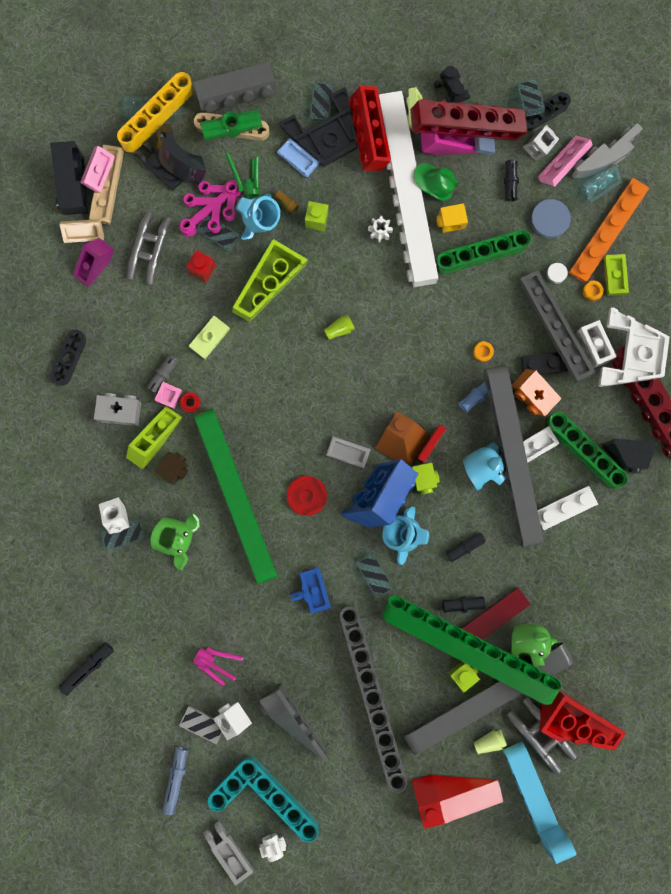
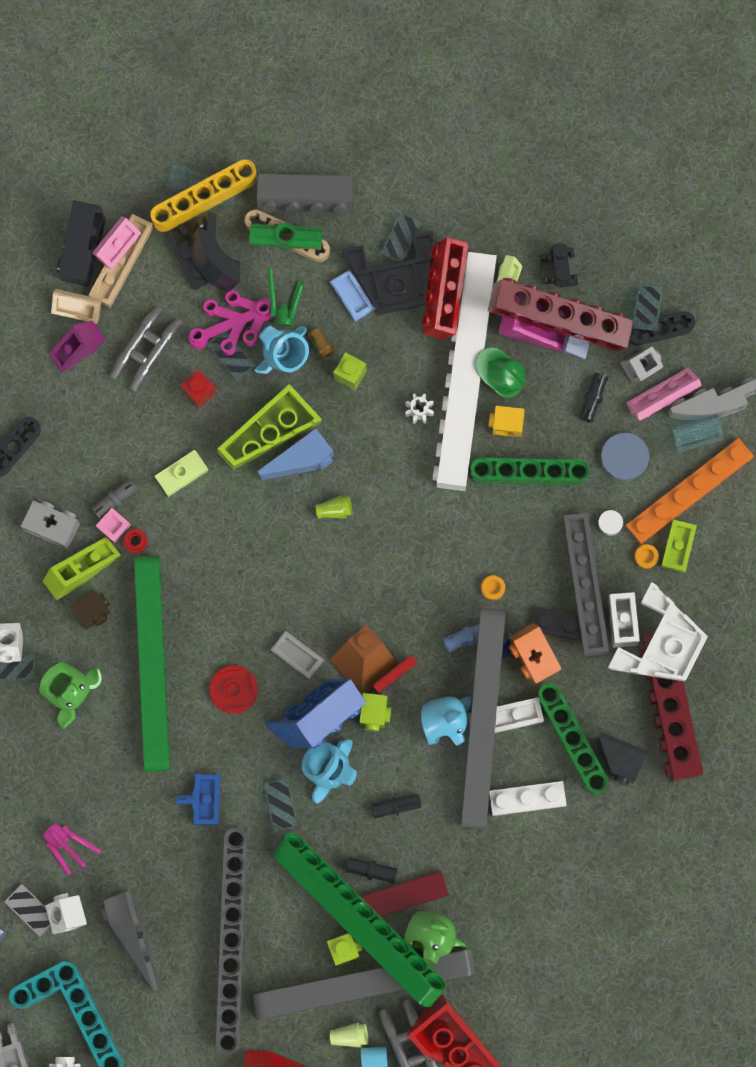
camera: 25 degrees right, 5 degrees down
(302, 294) = (302, 457): none -> medium blue slope

